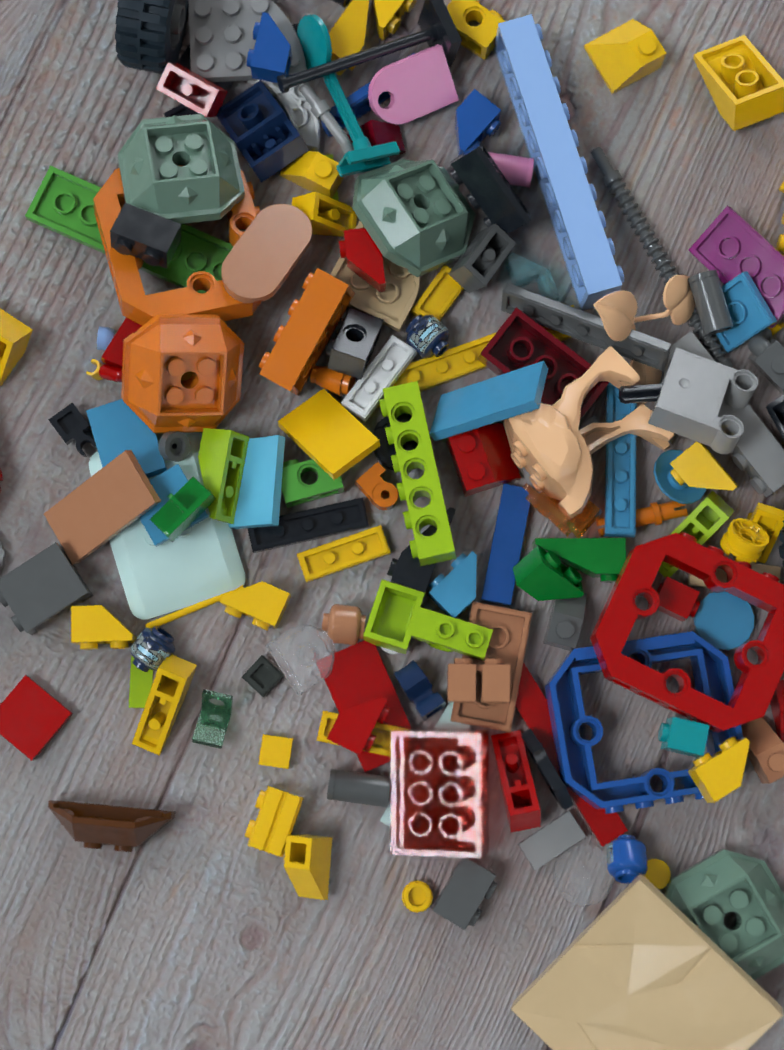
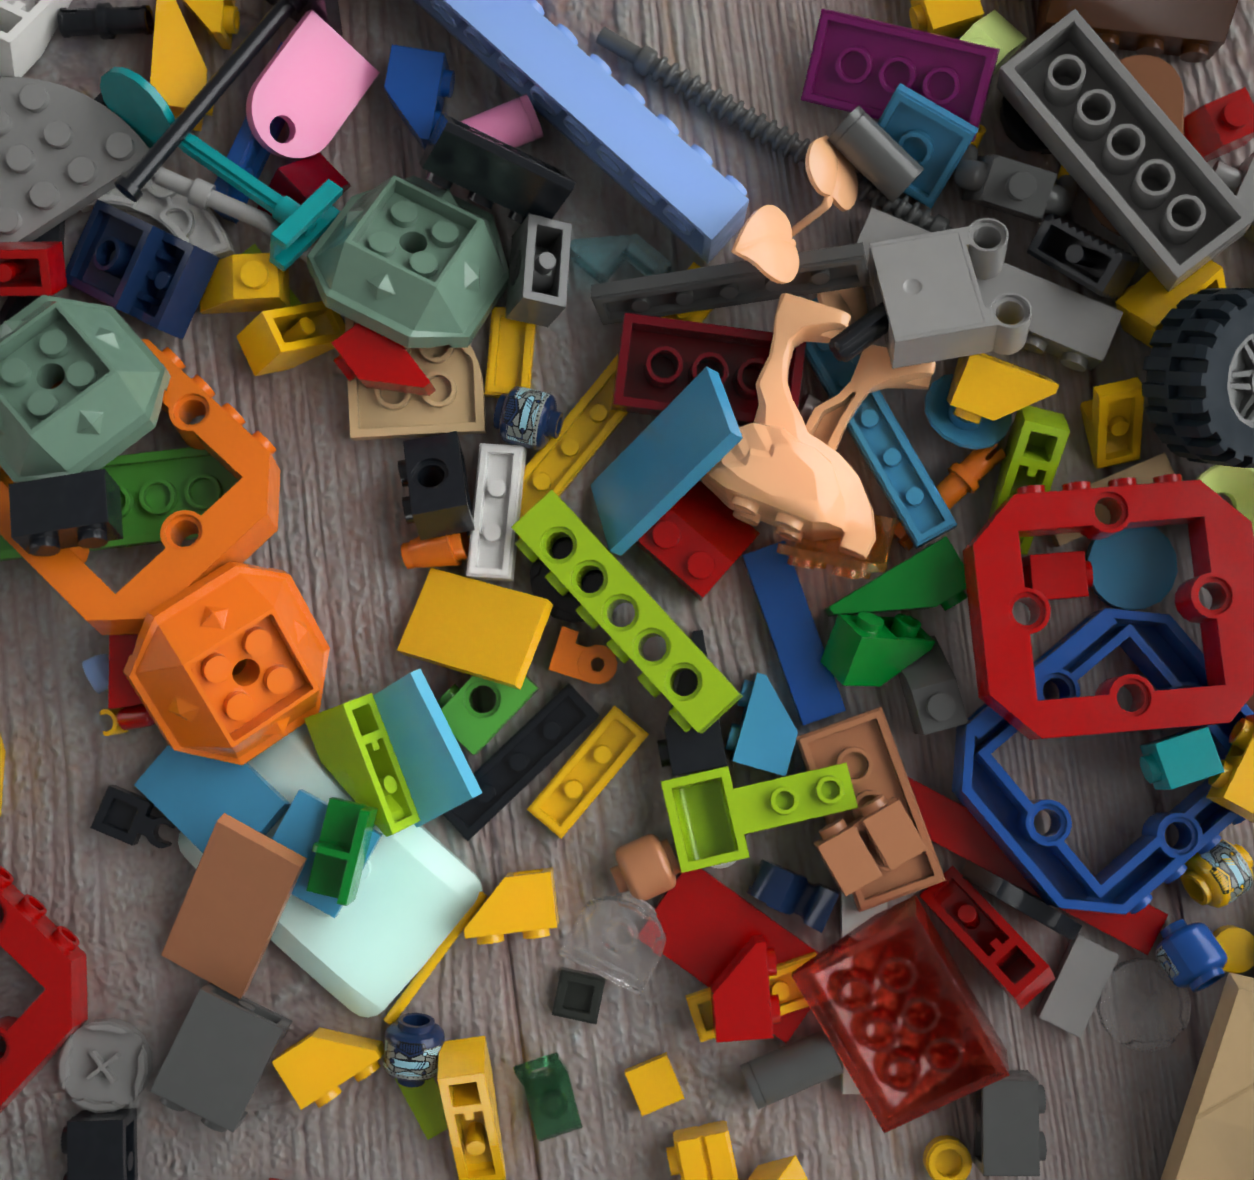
camera: 25 degrees left, 5 degrees up
(174, 446) = (280, 767): dark grey tile -> none
(266, 253) = (246, 437): nougat tile -> none
(271, 52) = (86, 154): blue slope -> none
(307, 331) = (364, 511): orange brick -> none
(670, 823) = (1218, 875): none -> head
(744, 540) = (1106, 449): yellow wheel -> none

